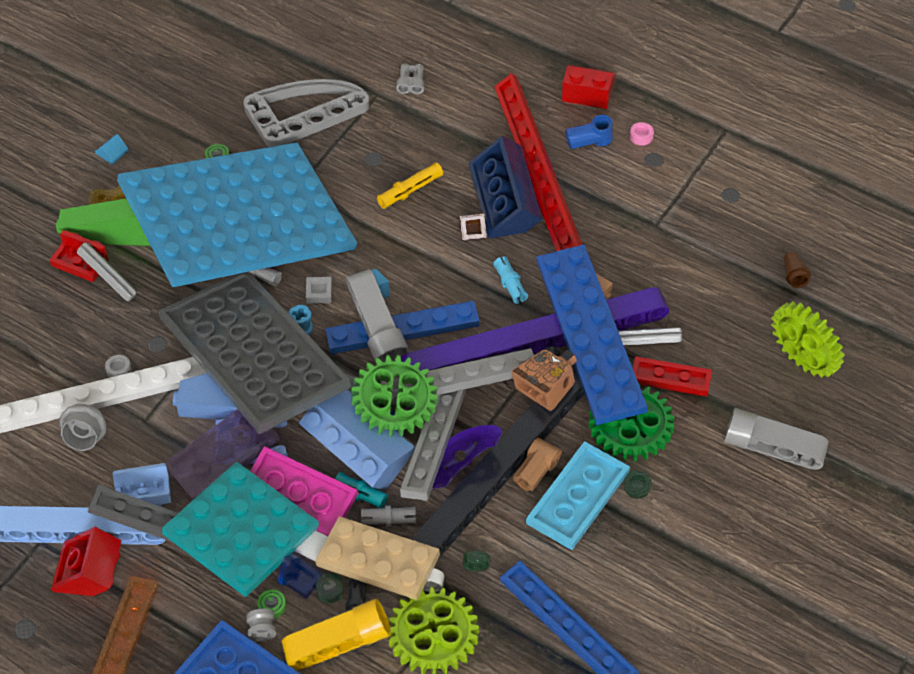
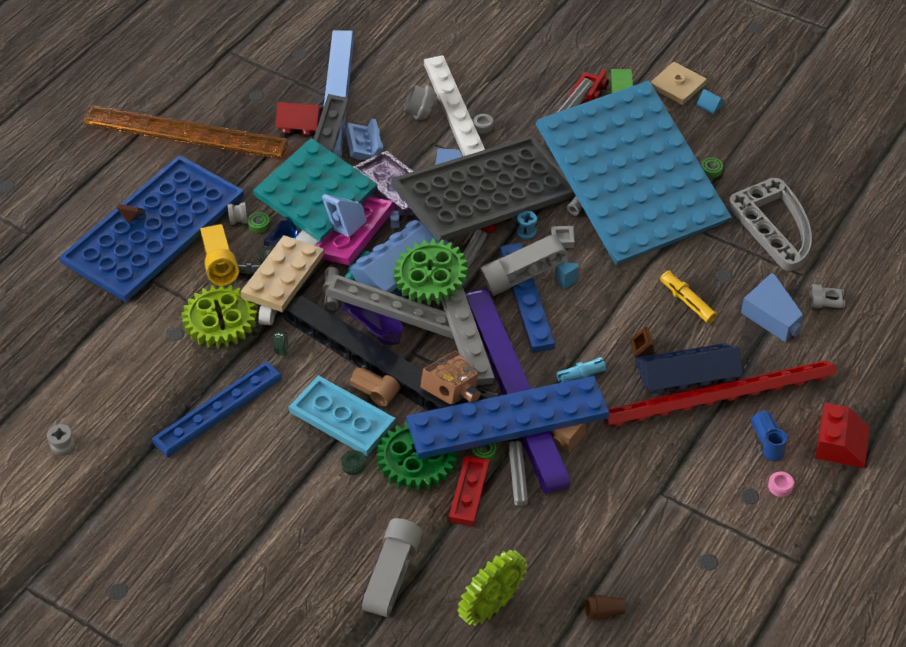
camera: 90 degrees right, 5 degrees down
(74, 176) = (678, 83): none -> tan plate
(293, 487) = (344, 214): none -> light blue slope
(429, 117) = (773, 309): none -> medium blue slope

